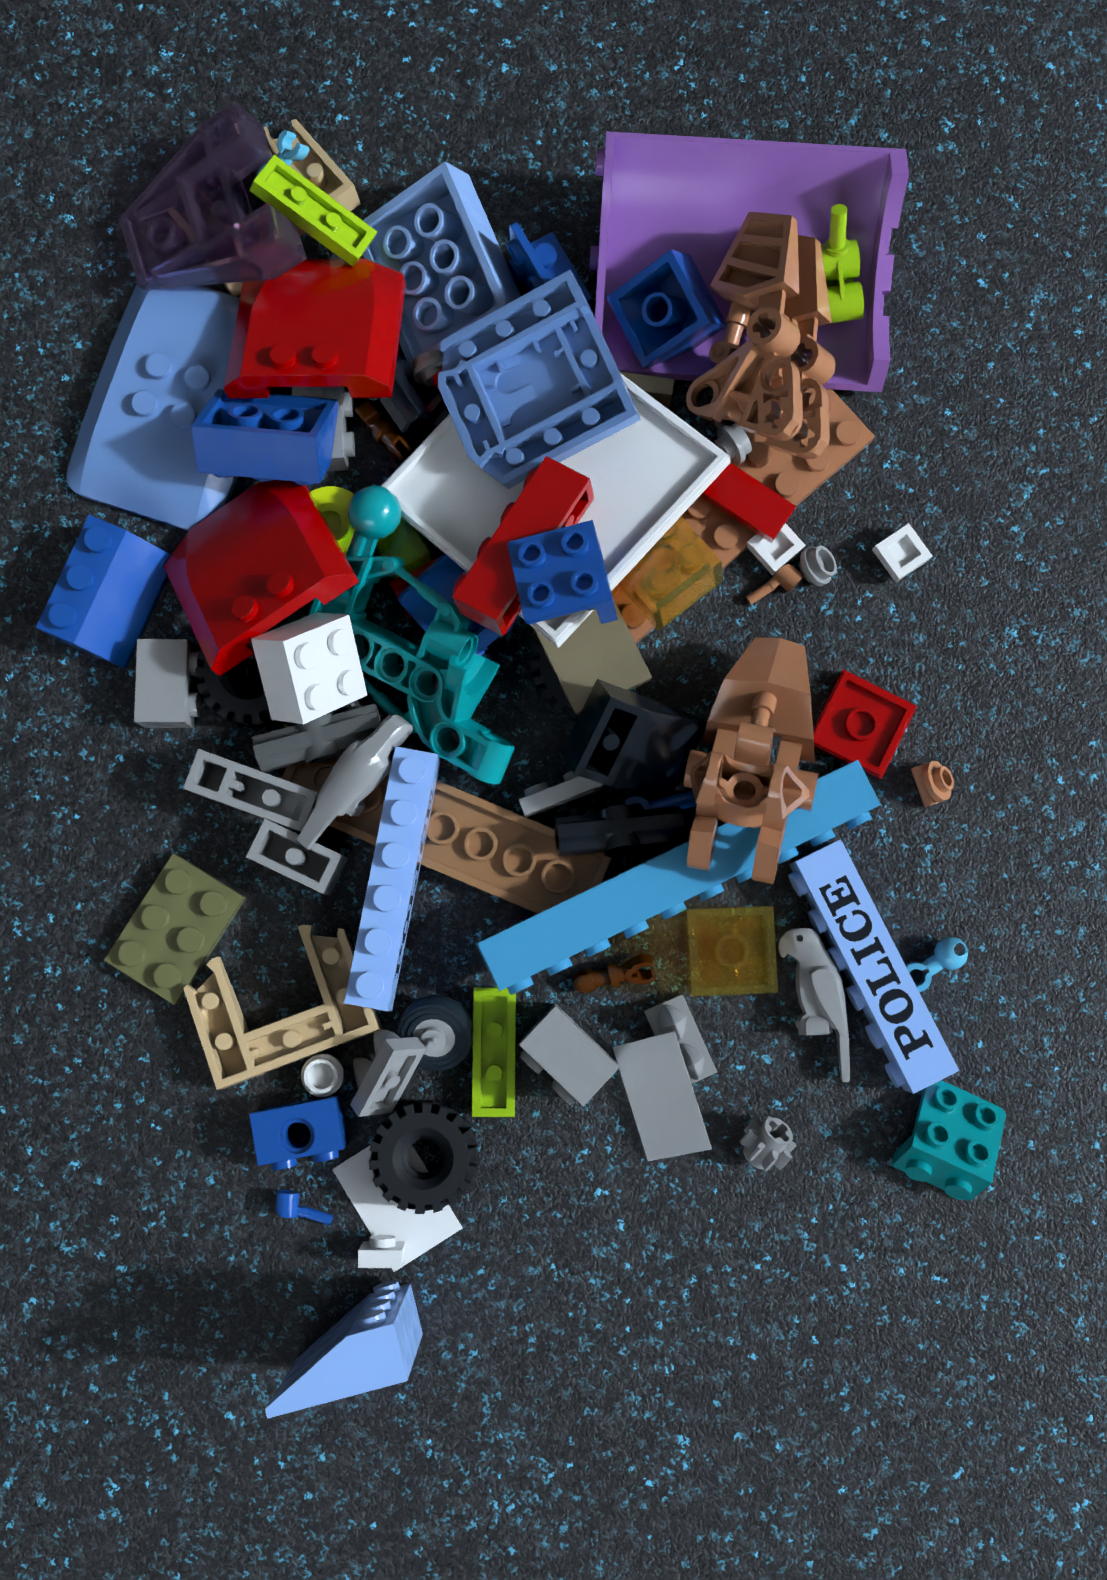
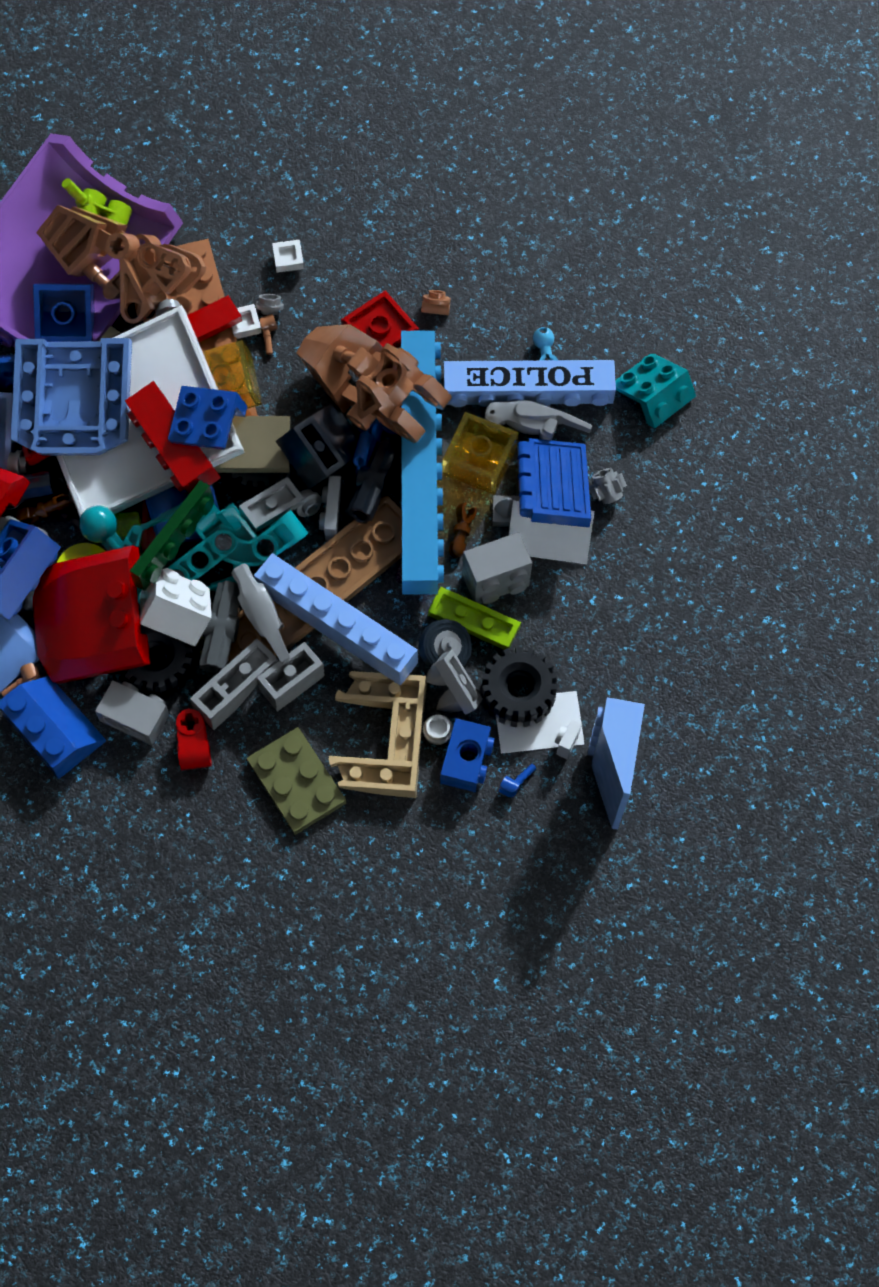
camera: 65 degrees left, 15 degrees down
(156, 779) = (192, 745): none -> red piece
(162, 532) = (28, 672): none -> nougat hand
(366, 616) = (172, 535): none -> dark green plate
(515, 716) = (271, 504): none -> light grey tile
(550, 758) = (311, 504): none -> light grey plate
(654, 794) = (362, 449): none -> blue piece
(729, 1074) = (553, 482): none -> blue hinge

